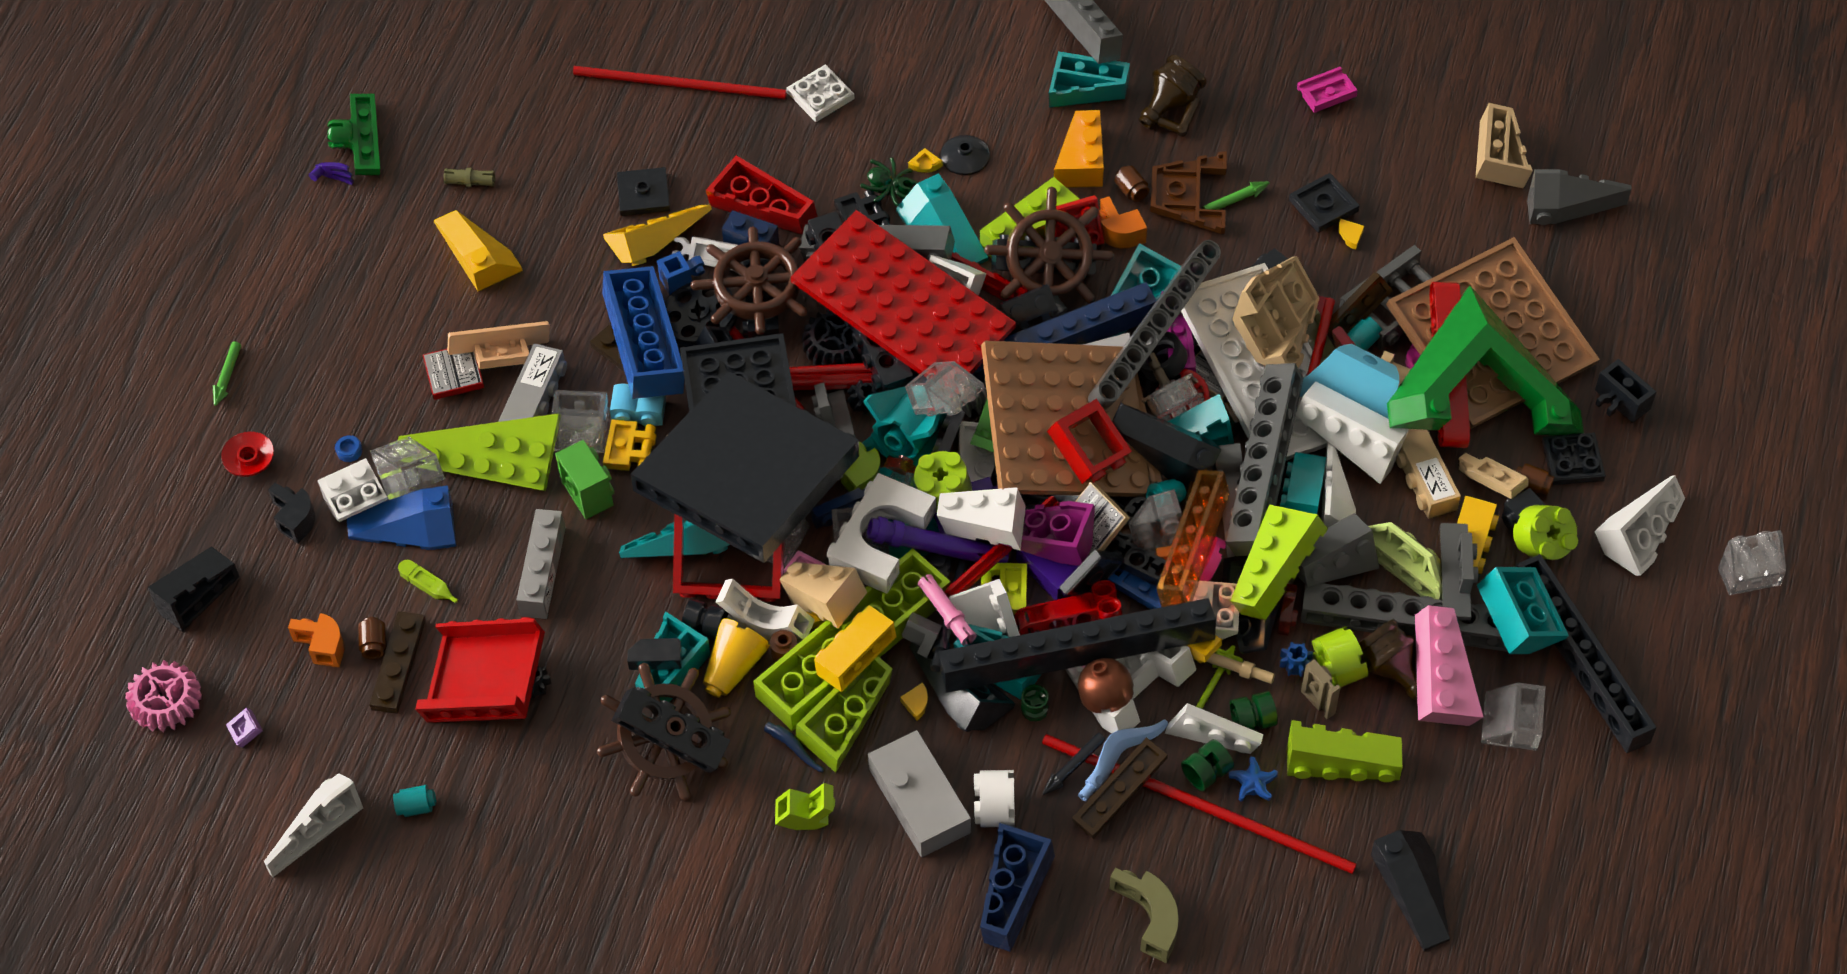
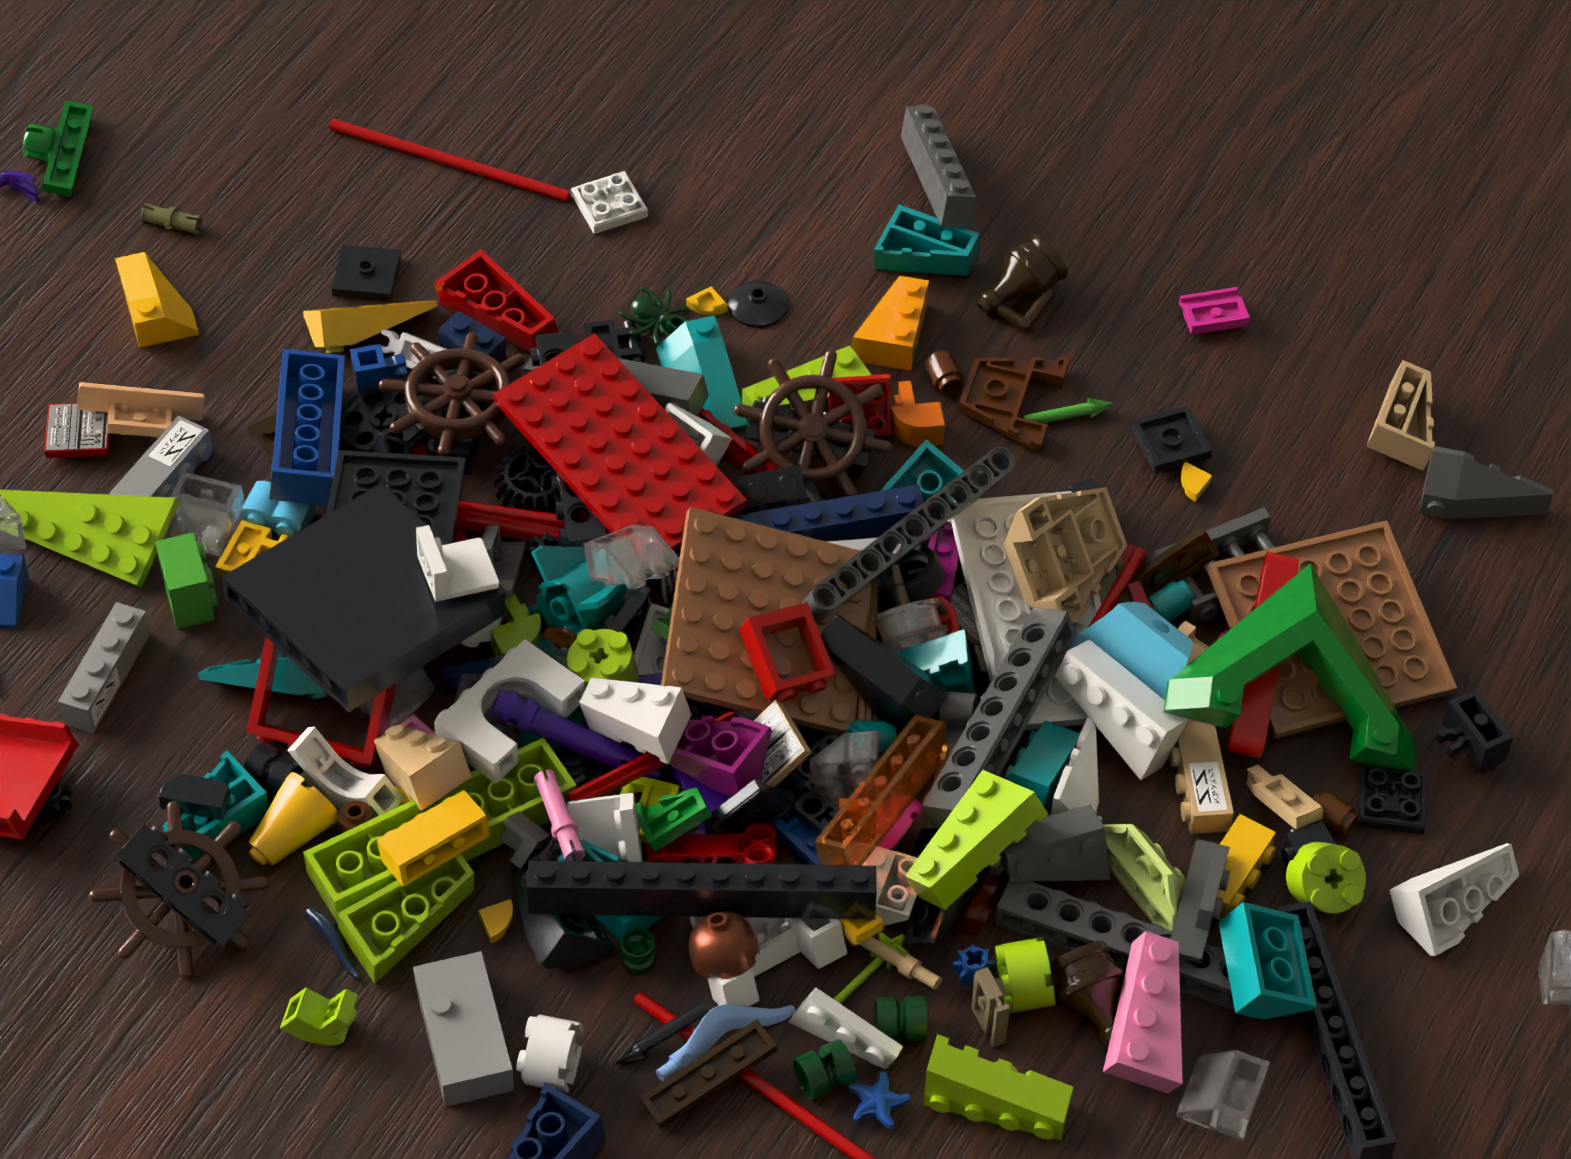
camera: 10 degrees right, 5 degrees down
(814, 428) = (454, 567): none -> white bracket
(1034, 591) = (672, 816): none -> green wing

